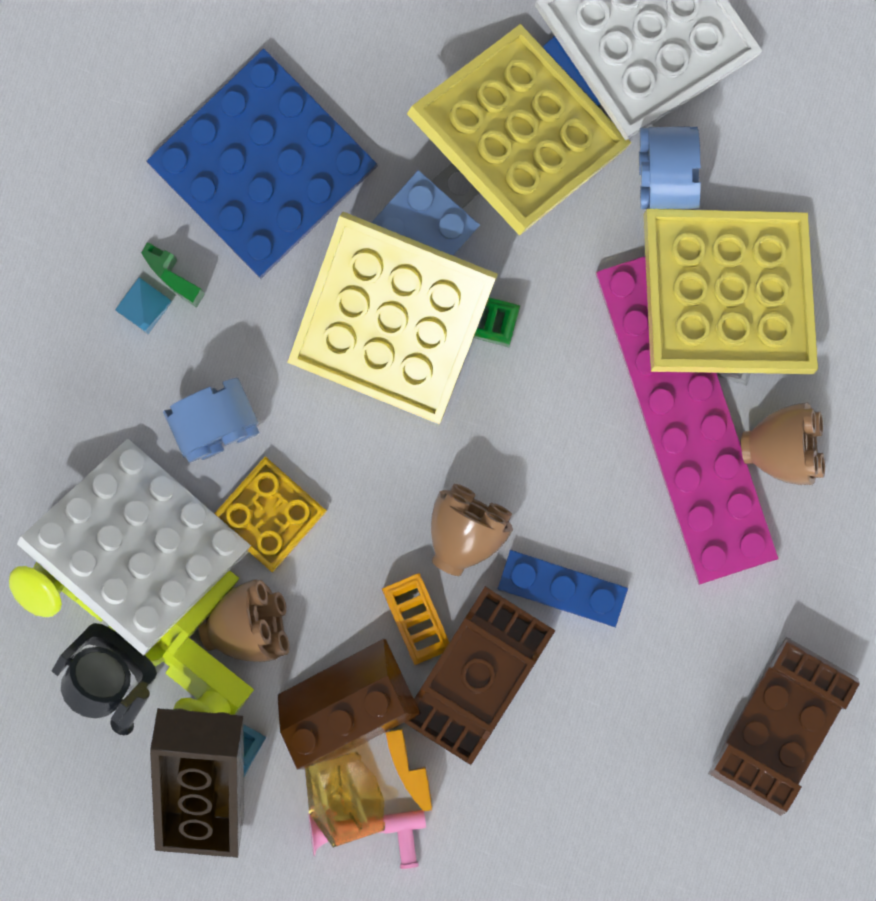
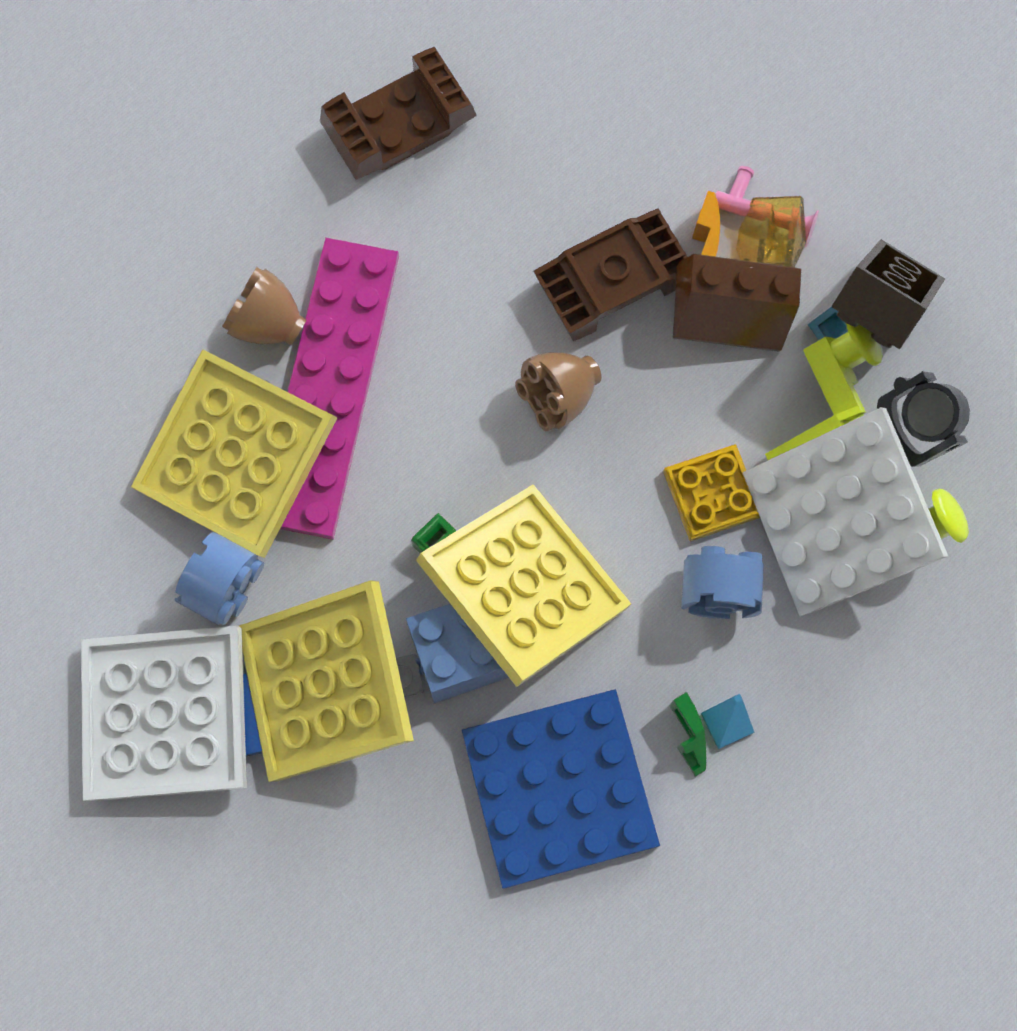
camera: 160 degrees left, 10 degrees down
(247, 624) = (778, 407): medium nougat piece -> none
(402, 587) = (634, 374): light orange slope -> none
(562, 588) = (507, 308): blue plate -> none

